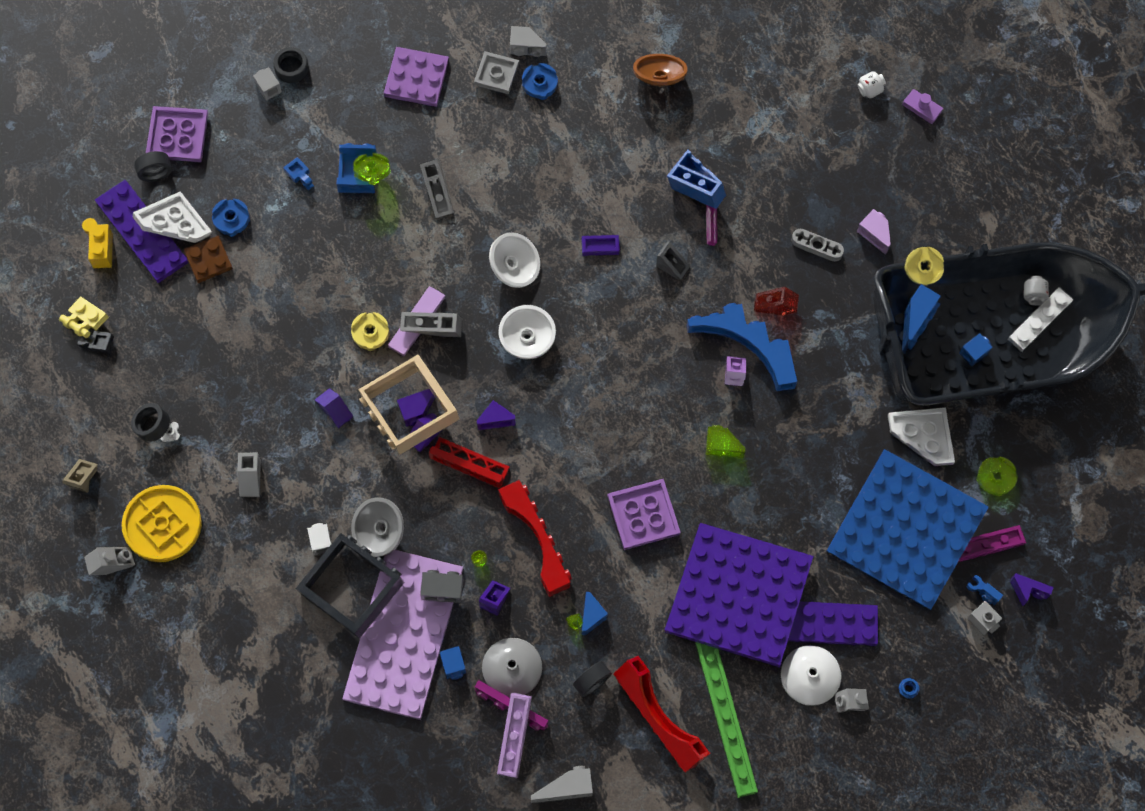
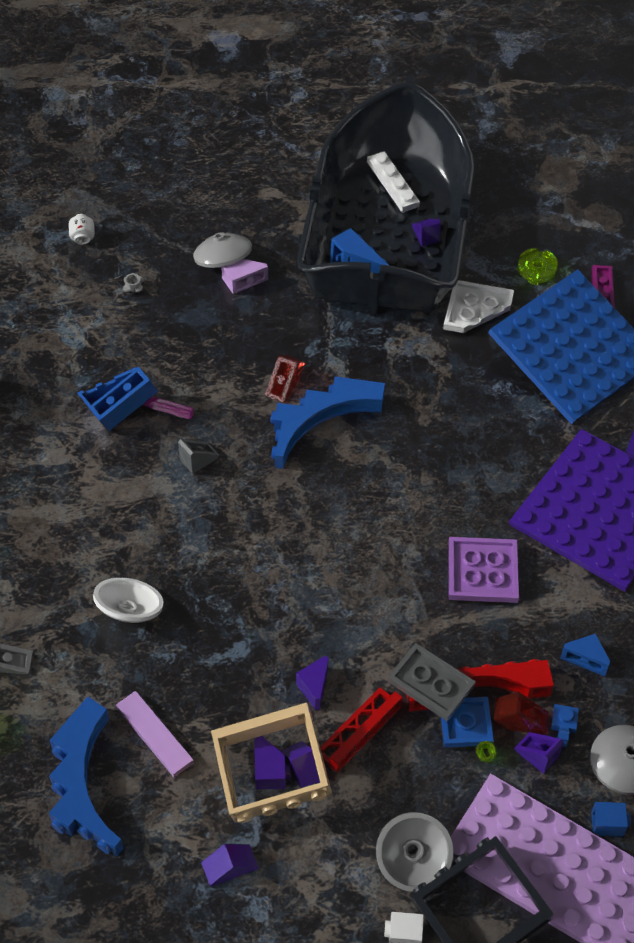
camera: 70 degrees left, 15 degrees down
(360, 278) = (69, 780): none -> blue arch
(374, 340) = (143, 803): light yellow plate -> none
(432, 324) = (170, 712): light grey slope -> none
(441, 586) = (518, 796): dark grey brick -> none
(500, 537) = (468, 724): none -> blue plate
(515, 498) = (431, 681): none -> dark grey plate
(519, 577) = (520, 714): none -> clear red slope
(527, 321) = (220, 603): white dish -> none
(528, 611) = (564, 721): none -> blue plate
(575, 621) = (589, 674): clear neon green hinge -> none
(600, 245) = (144, 516): dark purple tile -> none
(723, 443) = (425, 471): clear neon green slope -> none
(735, 371) = (348, 435): medium lavender slope -> none
(820, 252) = (236, 319): light grey beam -> none
(832, 143) = (133, 283): none -> light grey plate
(893, 205) = (222, 250): none -> light grey dish
(922, 106) = (124, 200): medium lavender tile -> none
(935, 265) = (310, 237): light yellow plate -> none
(976, 349) = (407, 234): blue brick -> none
(989, 365) = (427, 231): none -> dark purple slope
(1036, 290) = (365, 171): light grey head -> none

